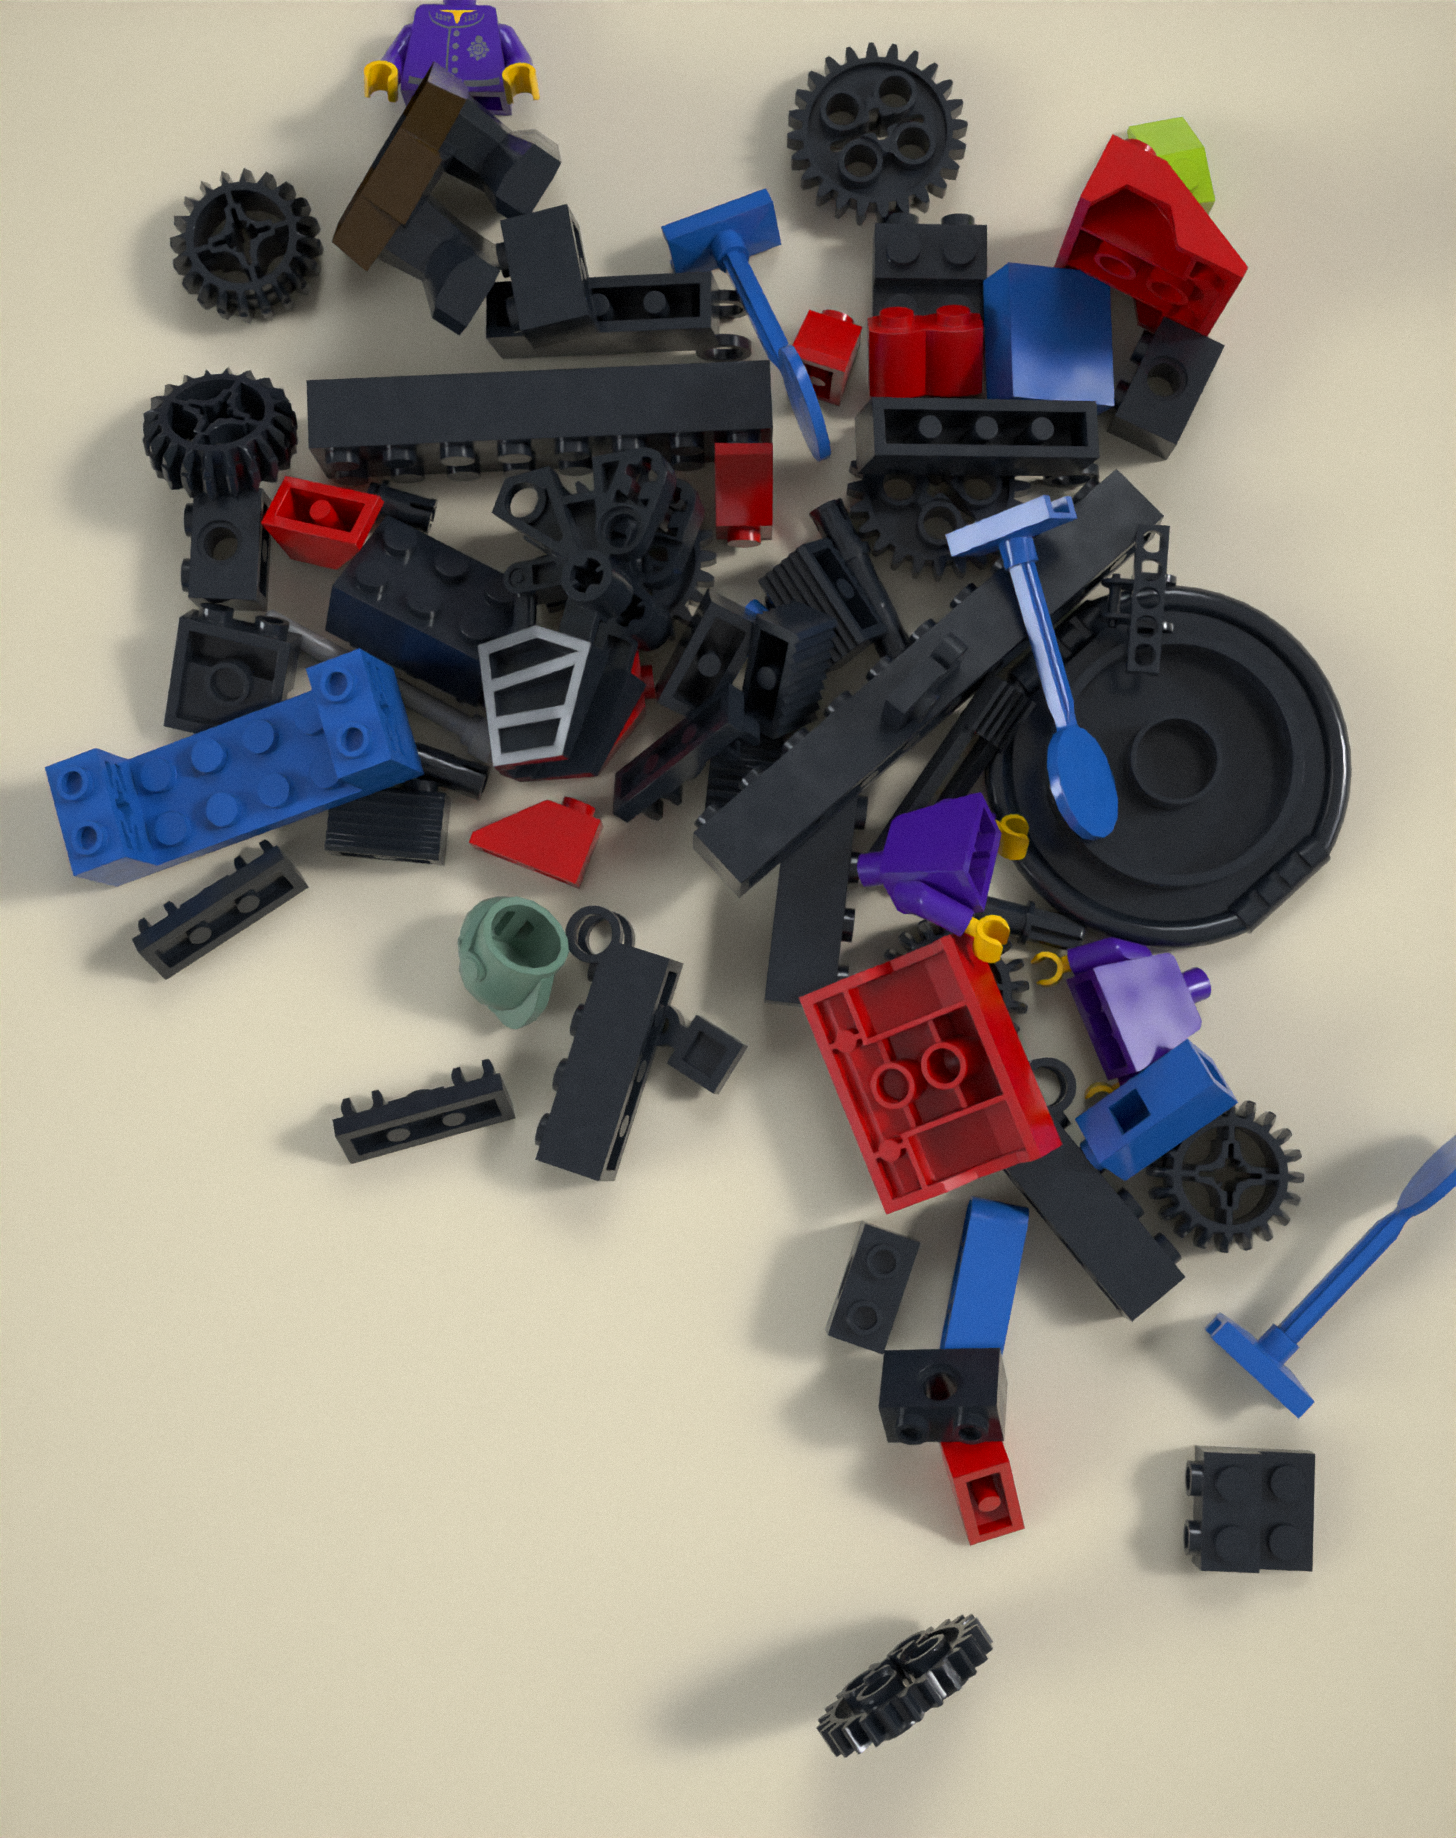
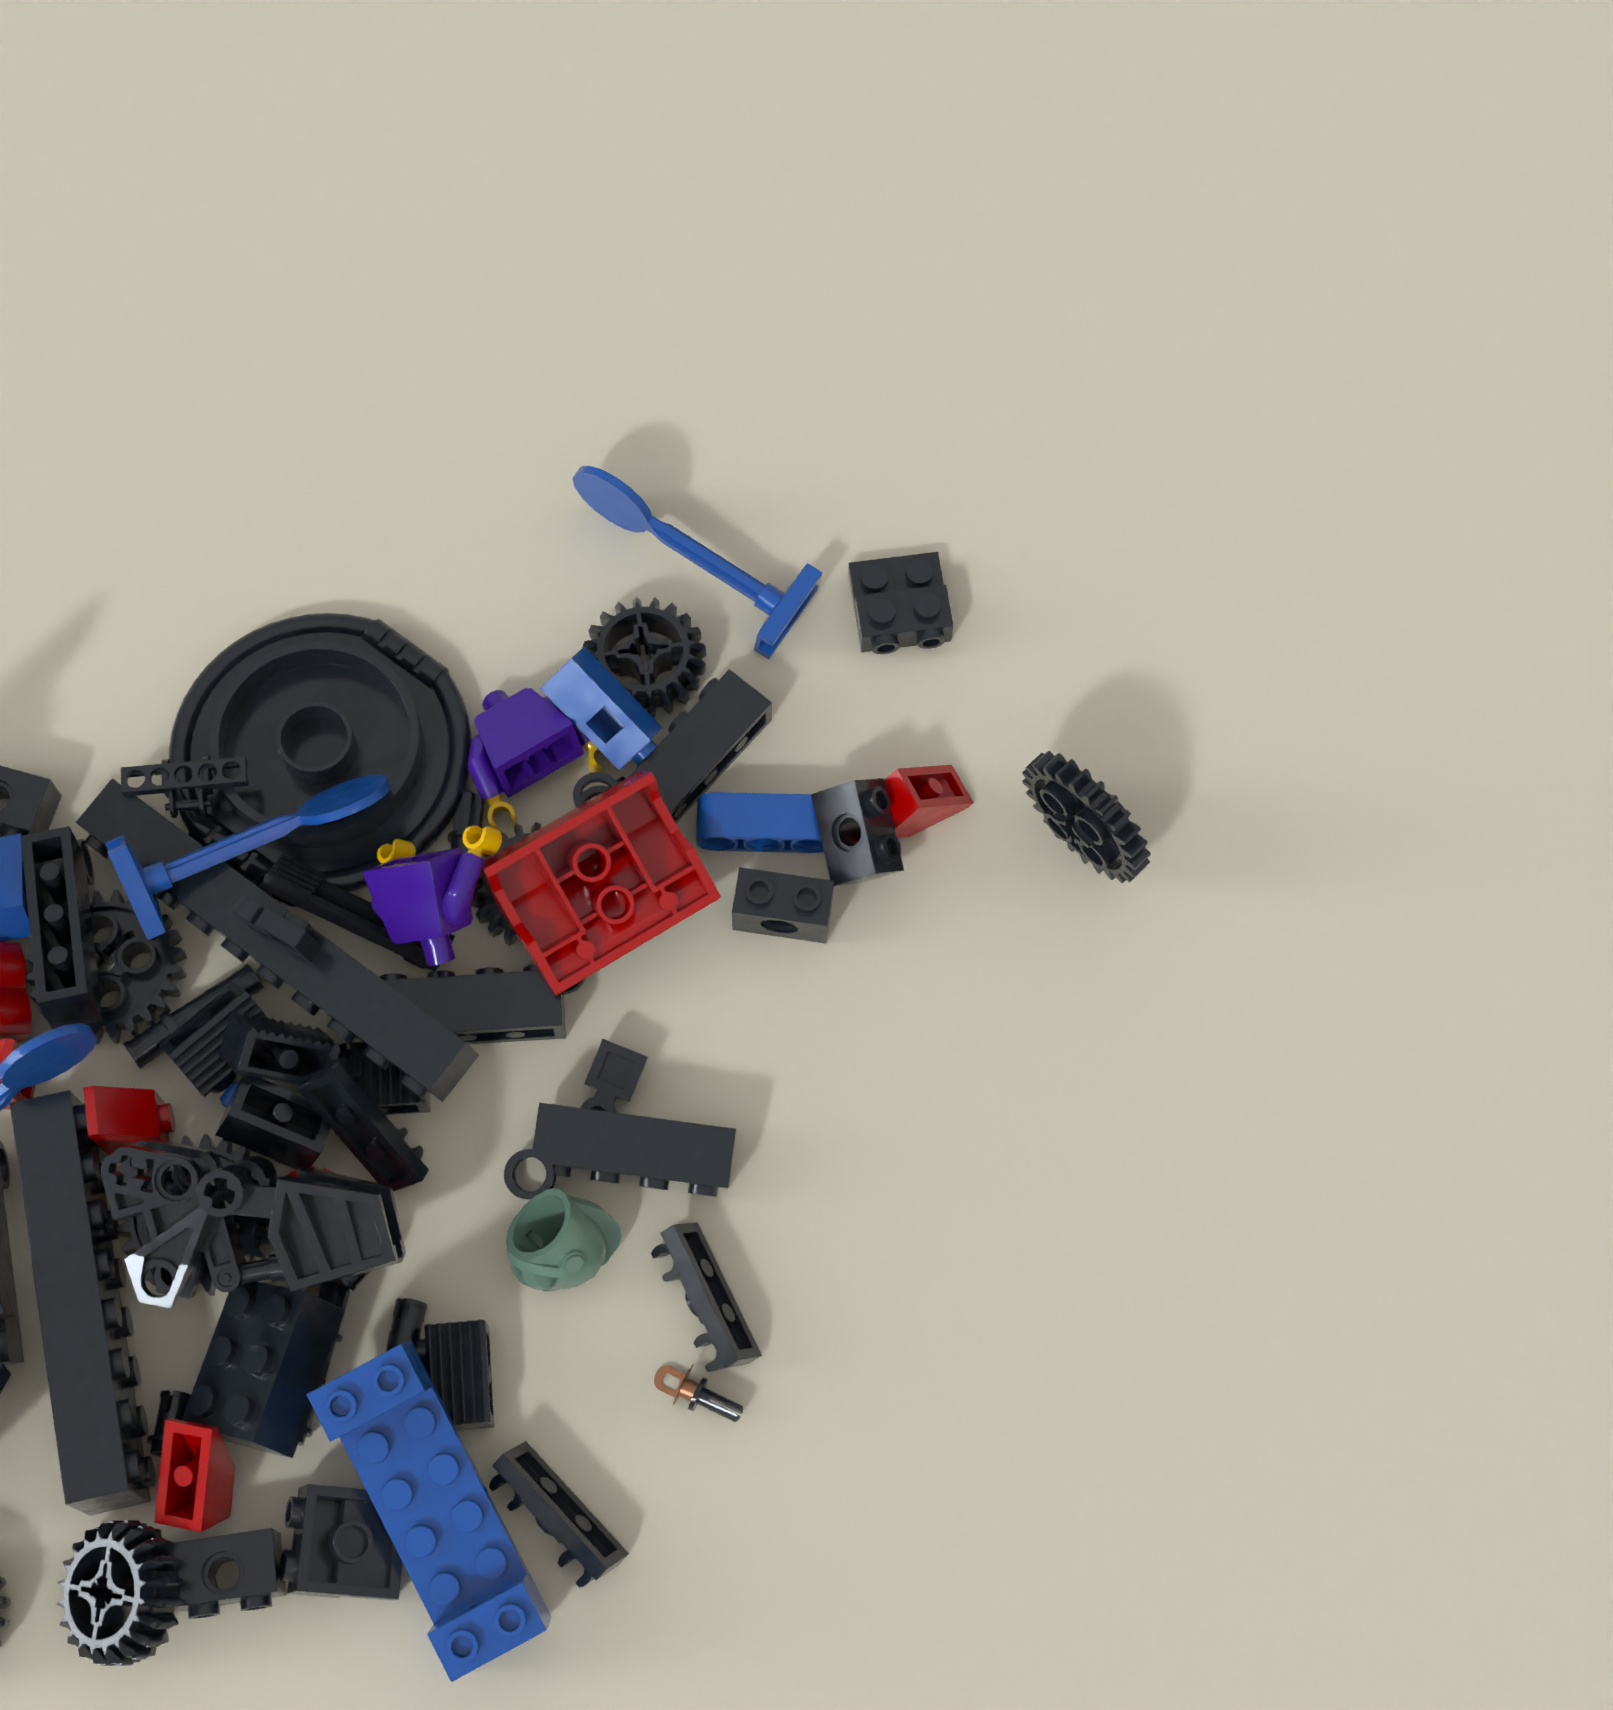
camera: 105 degrees left, 15 degrees down
(321, 1084) = (697, 1393): none -> piece
(472, 730) = (367, 1315): light grey piece -> none
(545, 839) = (454, 1235): red slope -> none

